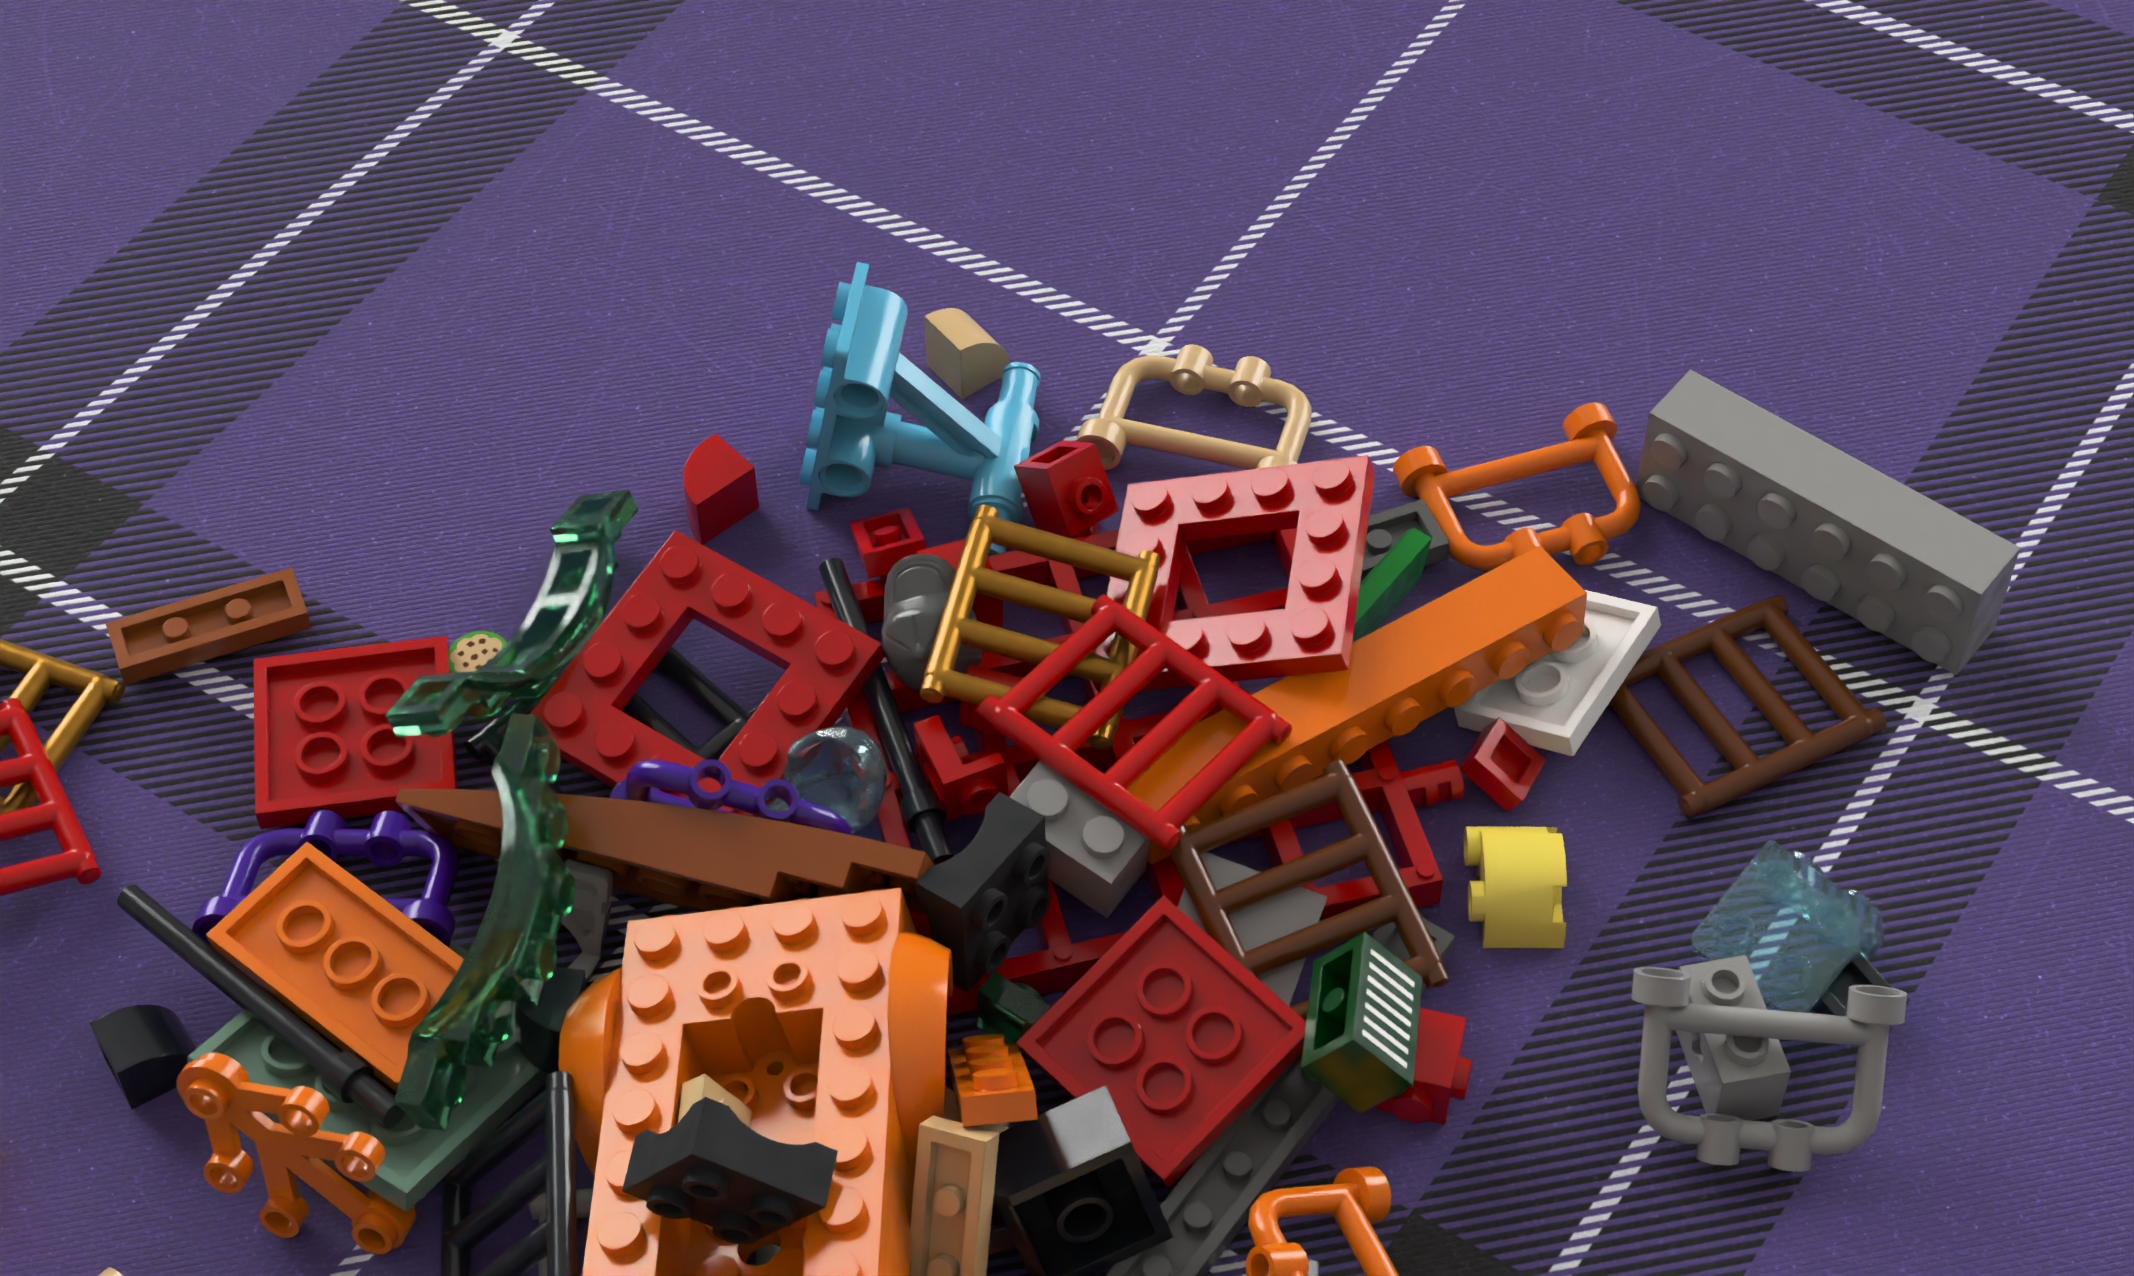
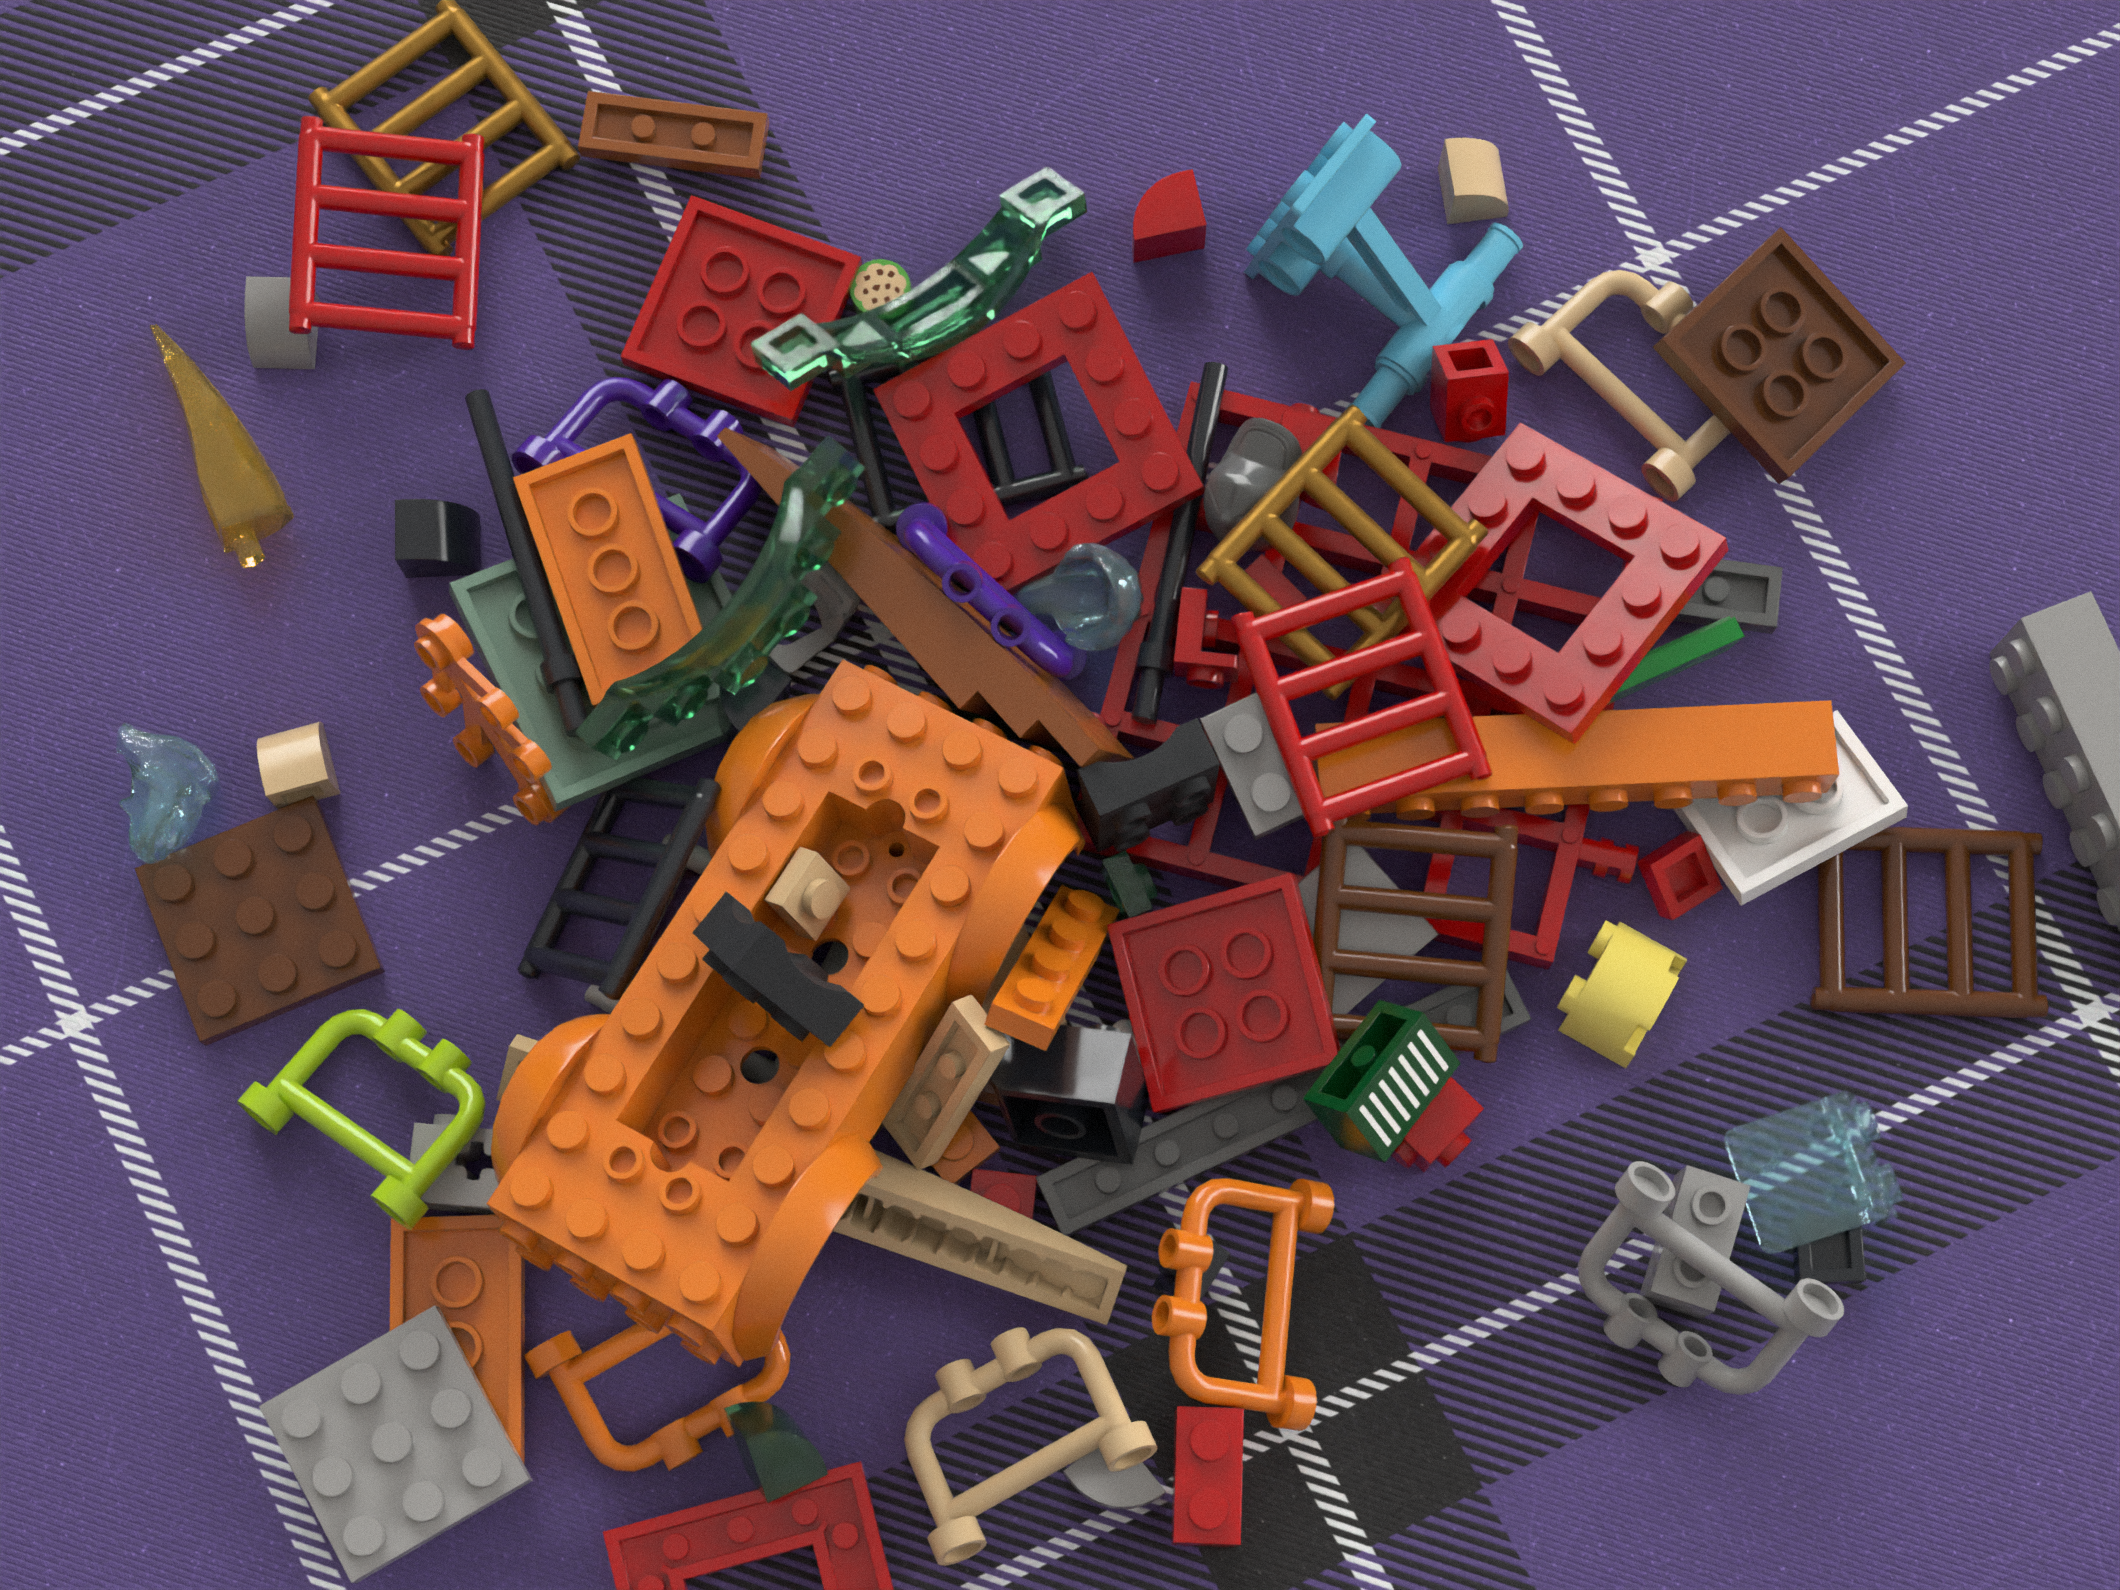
camera: 30 degrees right, 25 degrees up
(886, 540) = (1282, 364): red plate -> none
(1310, 351) = (1779, 355): none -> reddish brown plate
(1589, 433) = (1845, 667): orange bar -> none

